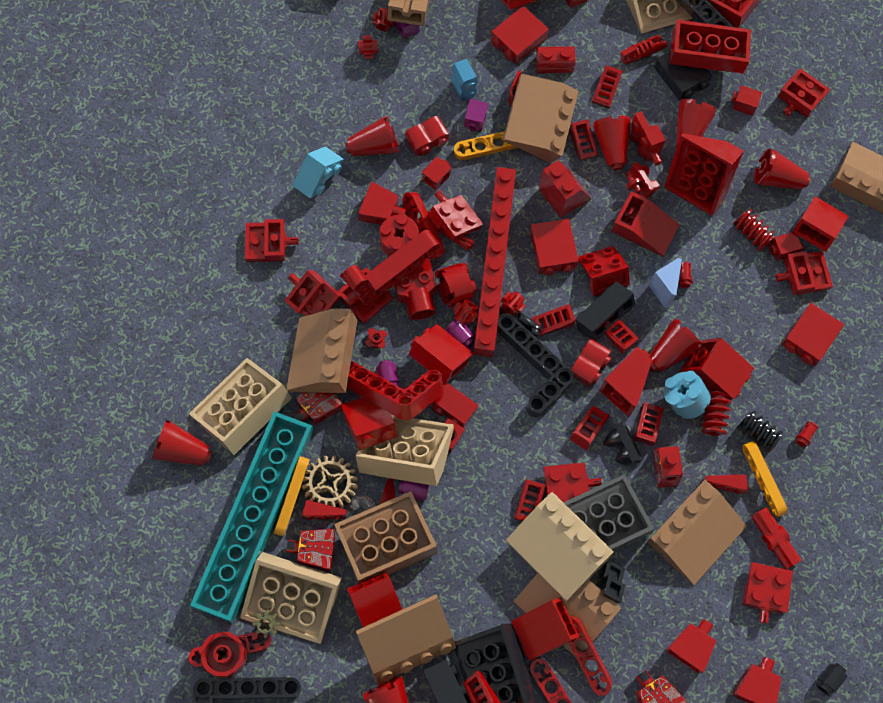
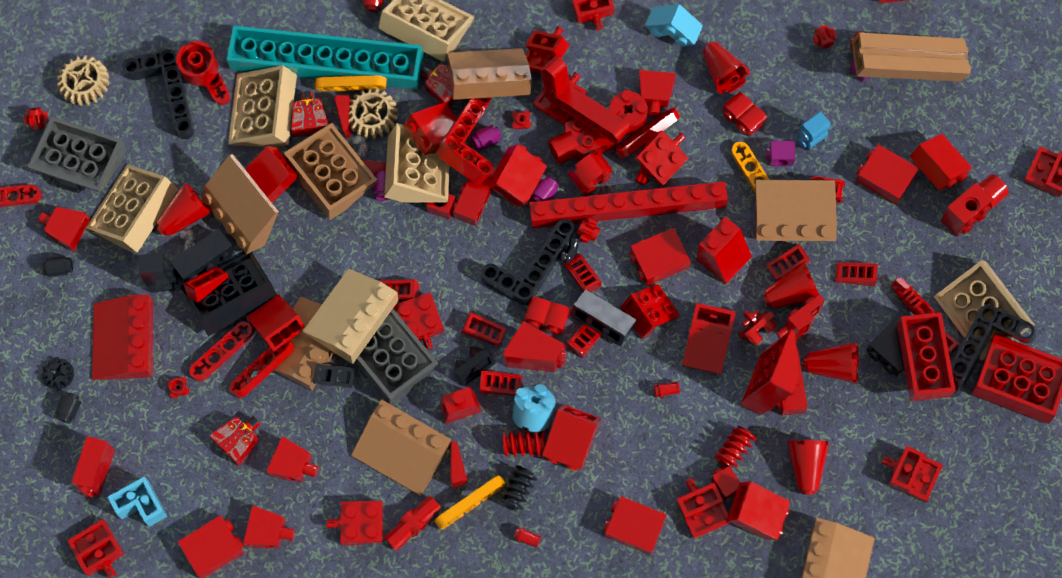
camera: 85 degrees right, 0 degrees up
(271, 625) = (233, 92): olive gear -> none
(436, 173) = (706, 132): red brick -> none
(465, 312) = (564, 187): red gear -> none
(555, 59) = (869, 214): red brick -> none
(665, 282) = (649, 368): light blue slope -> none
(673, 346) = (583, 388): red cone -> none
(746, 100) = (885, 415): red brick -> none

